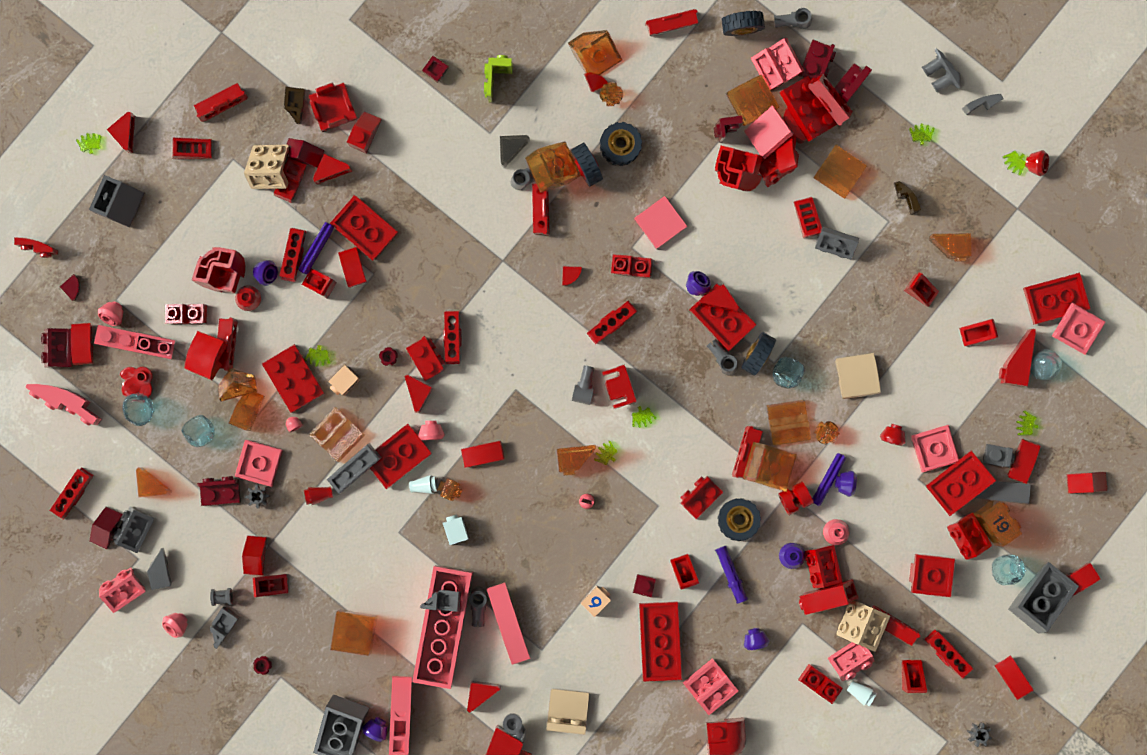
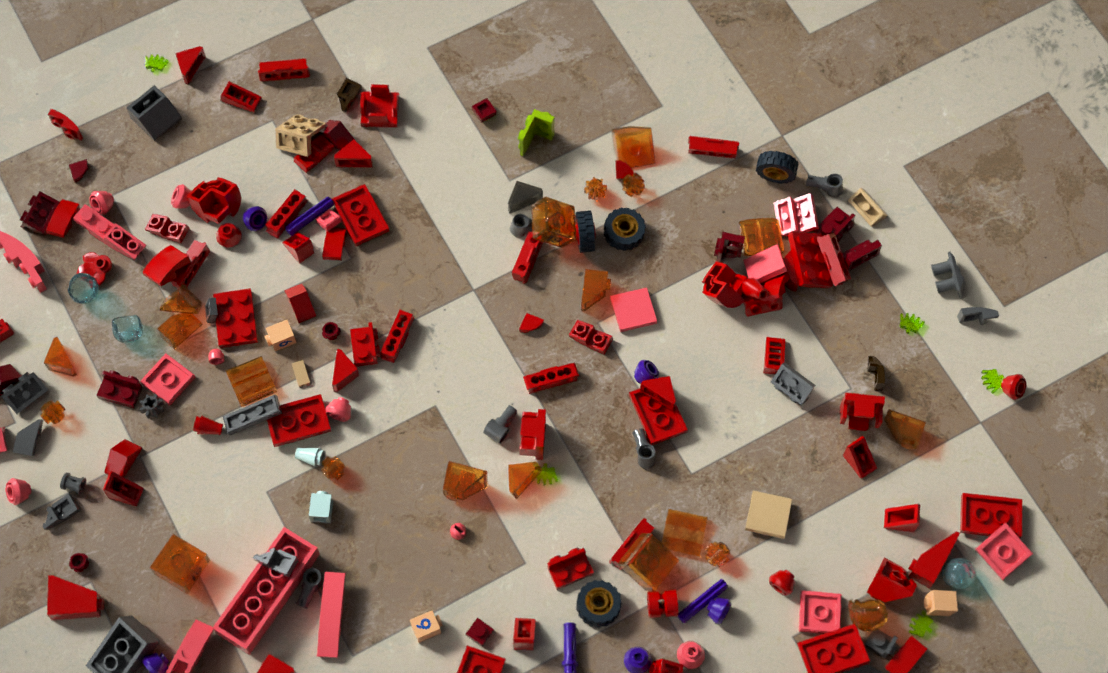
camera: 20 degrees right, 20 degrees down
(169, 539) = (52, 412): none -> clear orange gear
(183, 278) = (179, 198): none -> coral cone
(267, 381) = (211, 310): none -> dark grey tile
(273, 702) = (71, 600): none -> red slope
(317, 355) = (267, 307): clear neon green piece -> none
(336, 245) = (328, 220): none -> coral tile
(346, 339) = (300, 303): none -> red slope
(364, 132) = (396, 138): red slope -> none
(379, 408) = (300, 373): none -> tan piece
(482, 454) = (378, 448): red slope -> none
(572, 109) = (595, 189): none -> clear orange gear
(607, 454) = (495, 496): clear neon green piece -> none
(616, 215) = (594, 287): none -> clear orange slope
(623, 430) = (521, 476): none -> clear orange slope
(758, 353) = (678, 453): black wheel -> none
(770, 165) = (752, 288): none -> red cone
(788, 372) = (700, 484): clear light blue hair -> none
(840, 171) = (820, 326): clear orange slope -> none
(841, 27) = (867, 207): none -> tan slope
(909, 246) = (861, 409): none -> red panel
(979, 436) = (868, 614): none -> clear orange piece
(989, 398) = (891, 583): none -> red slope
(1039, 400) = (941, 603): none -> light nougat brick

